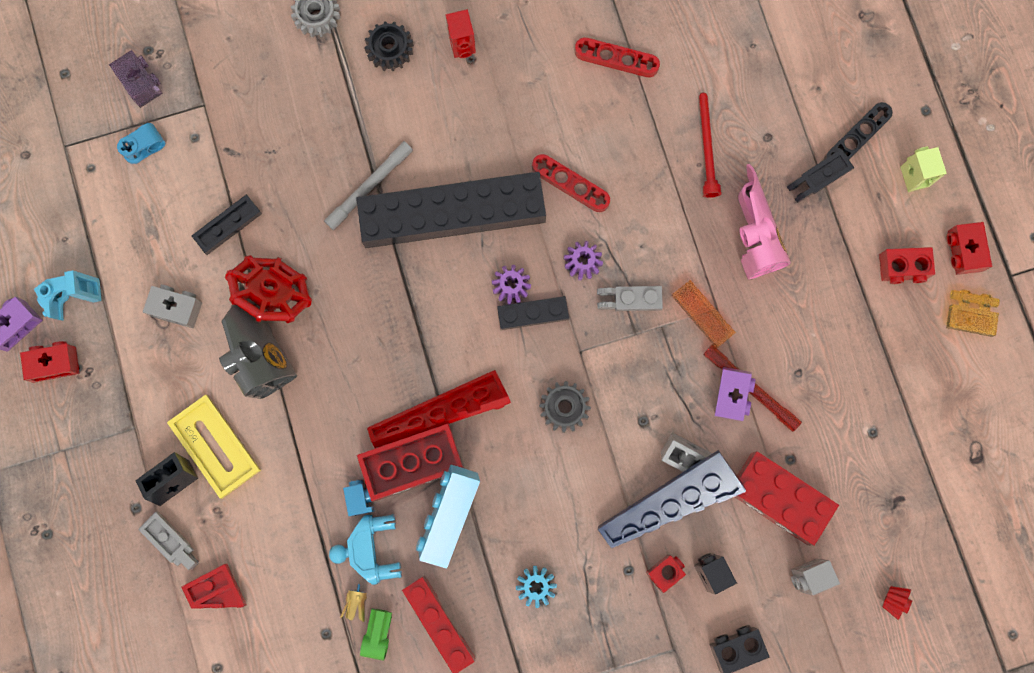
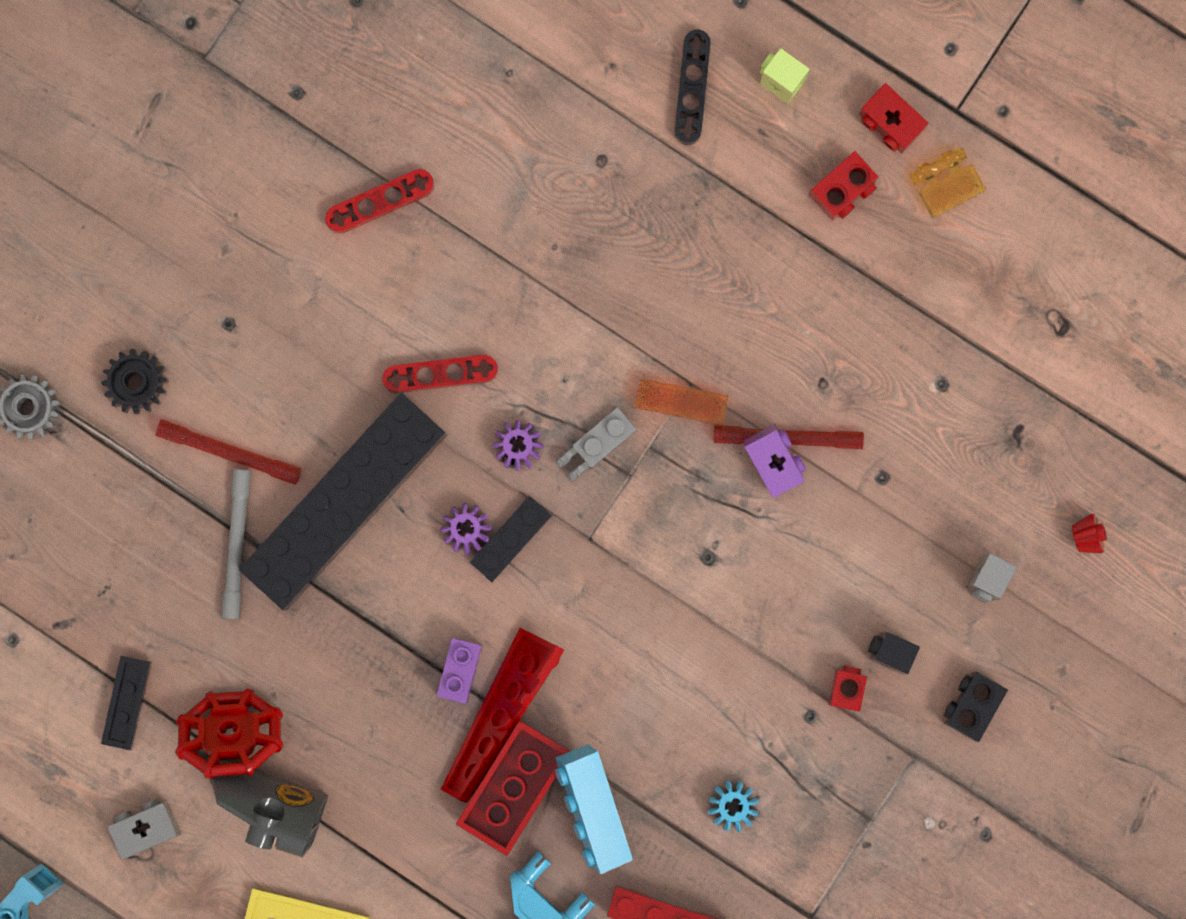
camera: 35 degrees left, 5 degrees up
(357, 498) = (490, 865): dark azure brick -> none
(390, 99) = (275, 468): none -> clear red piece
(437, 365) = (459, 670): none -> medium lavender brick
(461, 33) = (202, 311): red brick -> none
(577, 403) = (623, 592): dark grey gear -> none
(682, 453) = (779, 560): light grey brick -> none
(689, 492) = (807, 594): wing -> none
(711, 187) = (586, 262): red piece -> none
(760, 229) = (676, 274): bright pink panel -> none
(785, 499) = (902, 525): red brick -> none
(822, 174) = (688, 160): black hinge -> none

